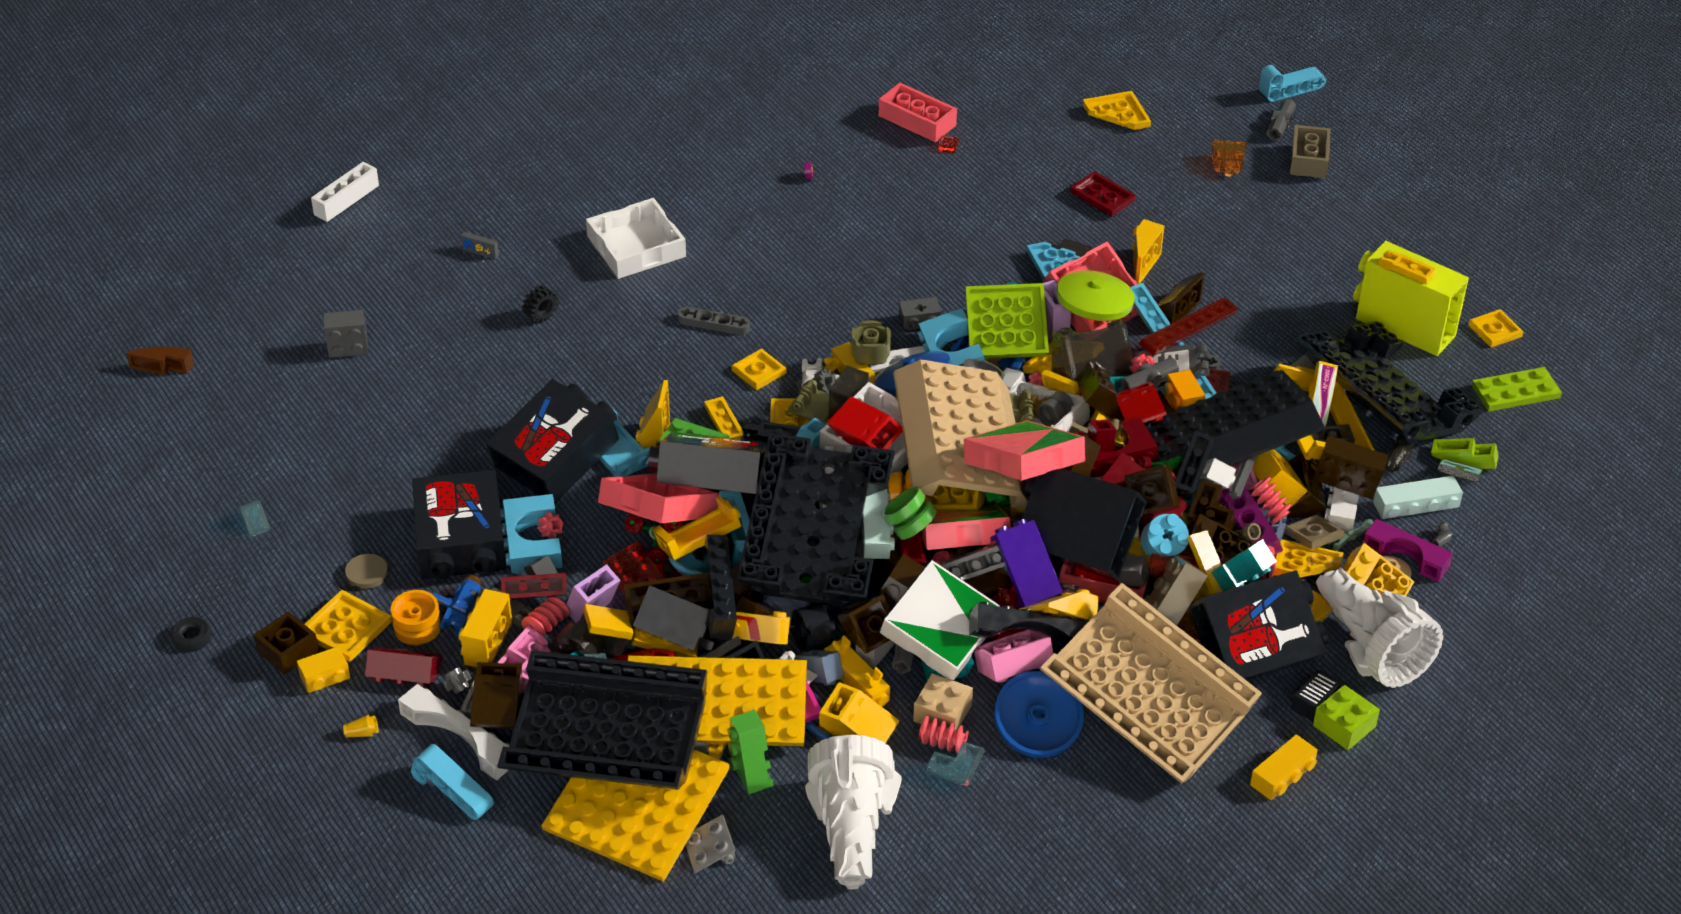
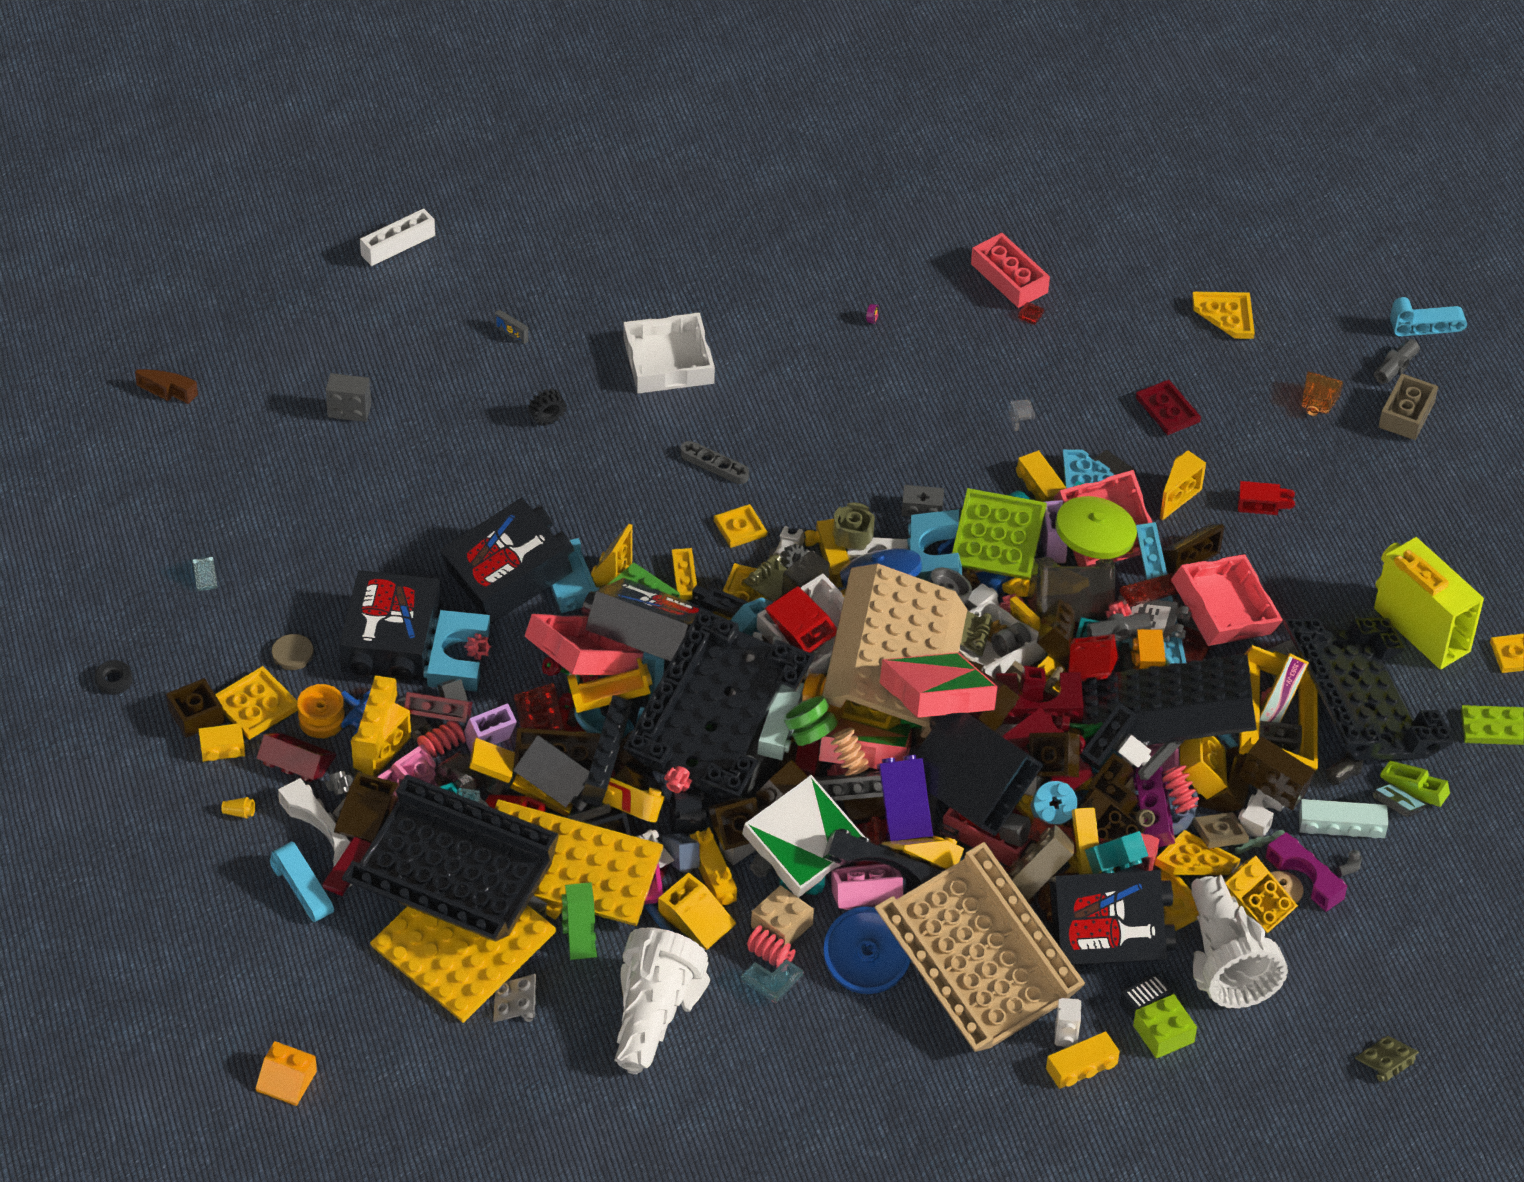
camera: 15 degrees right, 5 degrees up
(479, 606) = (376, 717): none -> yellow brick
(488, 771) = (354, 852): none -> dark red tile
(799, 596) = (678, 779): none -> coral gear
(958, 531) = (850, 751): none -> light nougat piece
(976, 221) = (1021, 411): none -> clear panel
(1013, 268) = (1039, 476): none -> yellow brick
(1220, 249) = (1264, 498): none -> red hinge
(1232, 334) = (1226, 600): none -> coral tile
(1257, 734) = (1067, 1022): none -> white brick
(1559, 695) = (1388, 1057): none -> olive hinge

